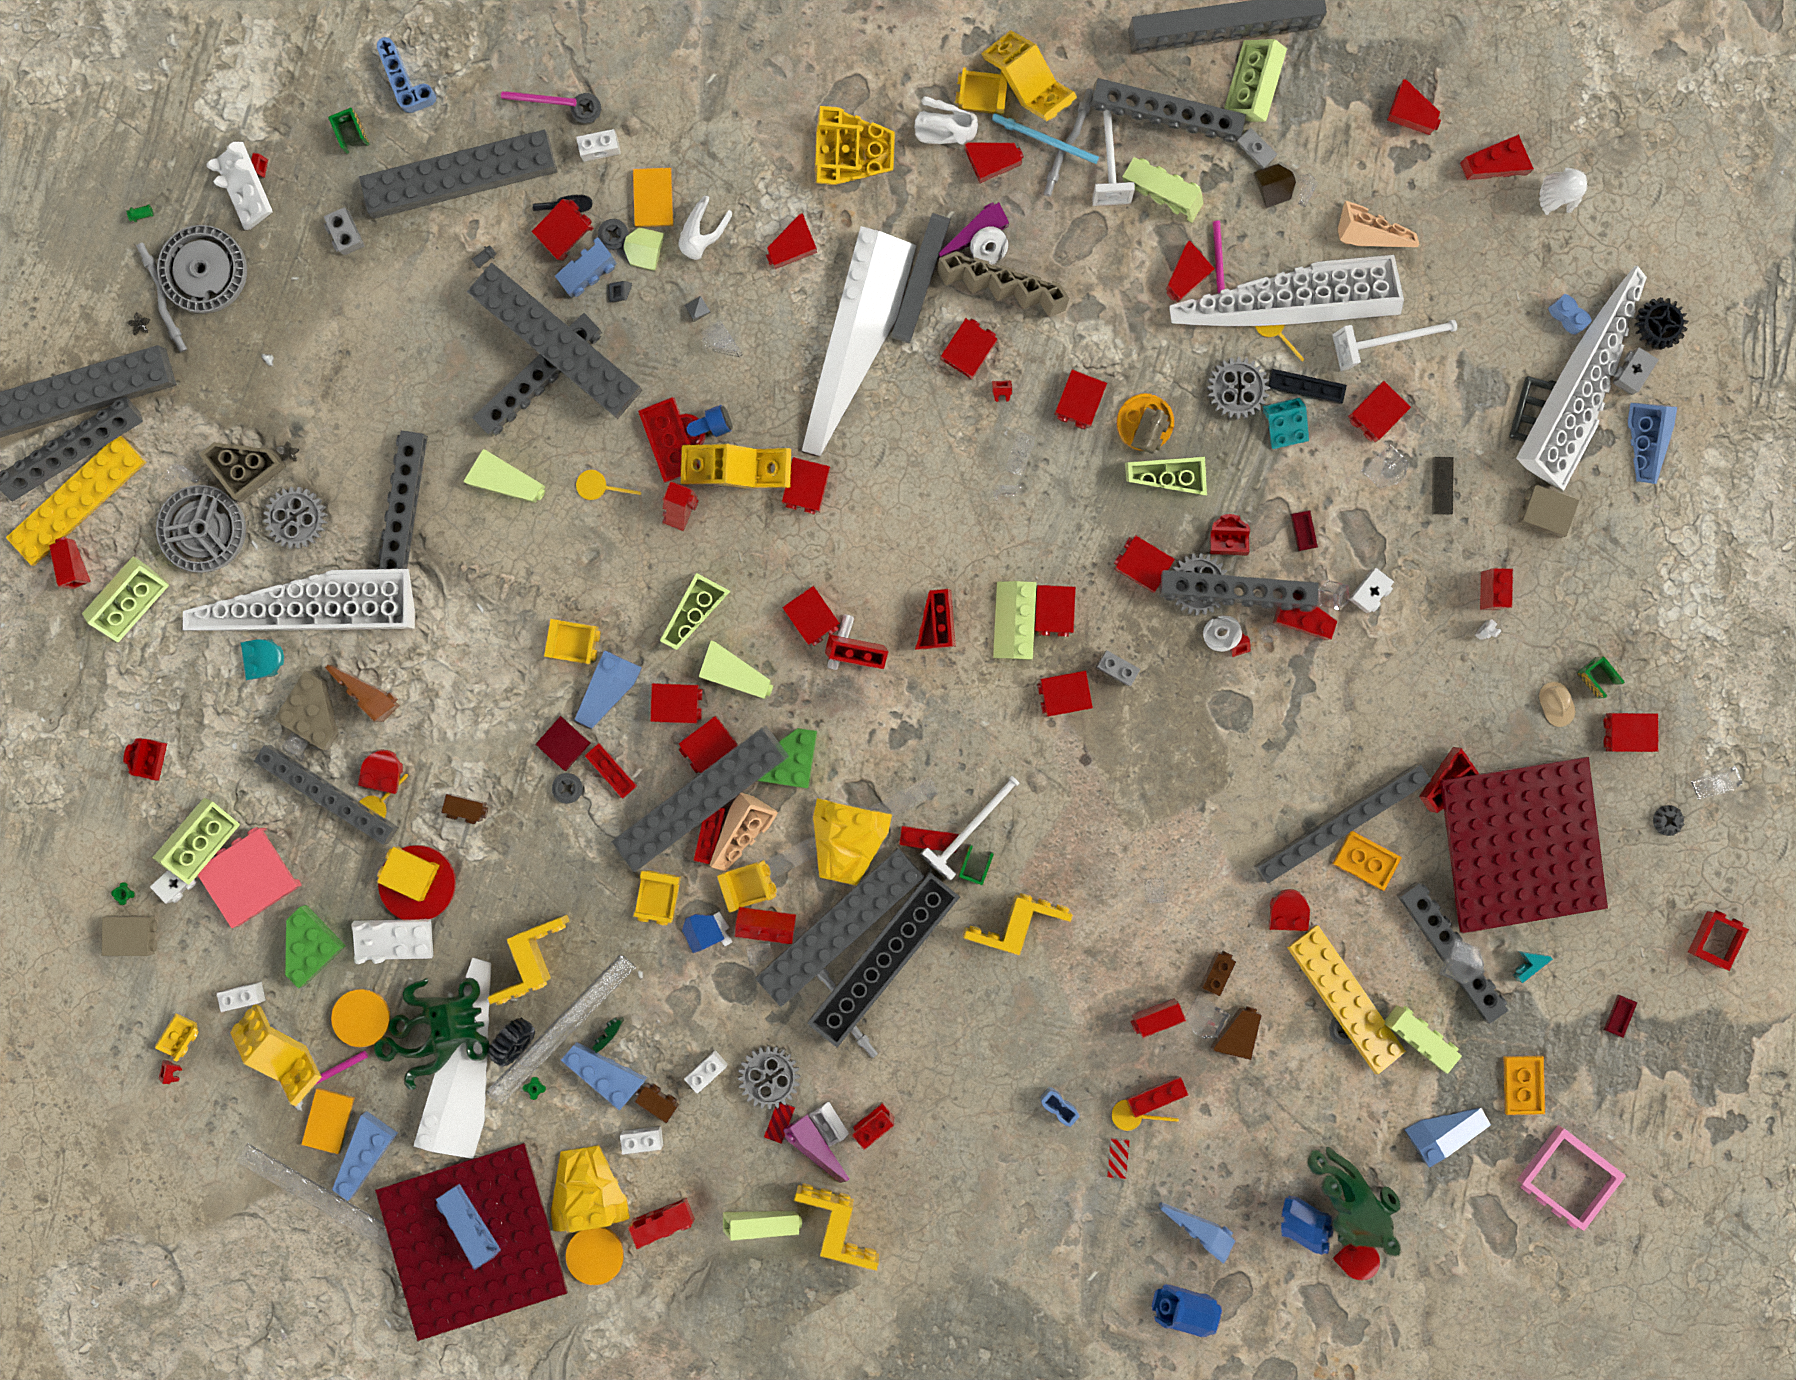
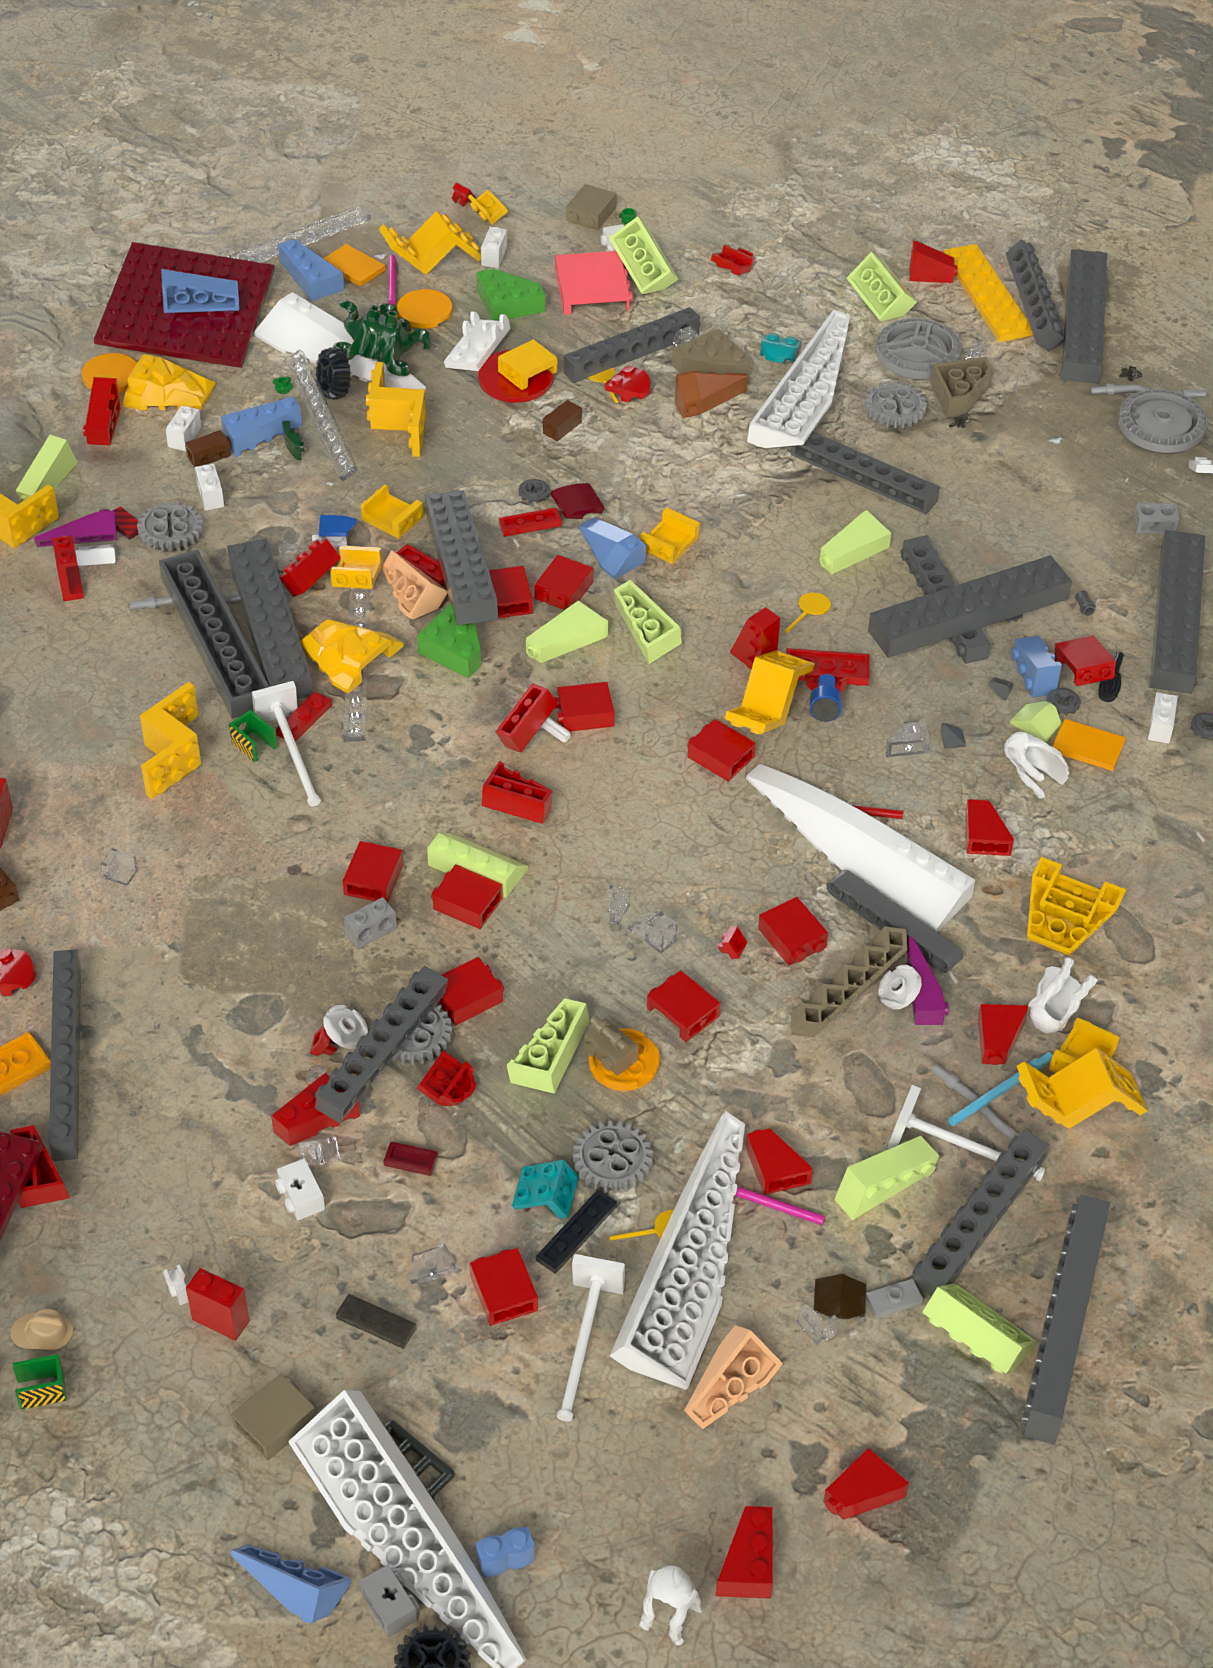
camera: 110 degrees right, 40 degrees down
(811, 342) = (880, 812): none -> red piece

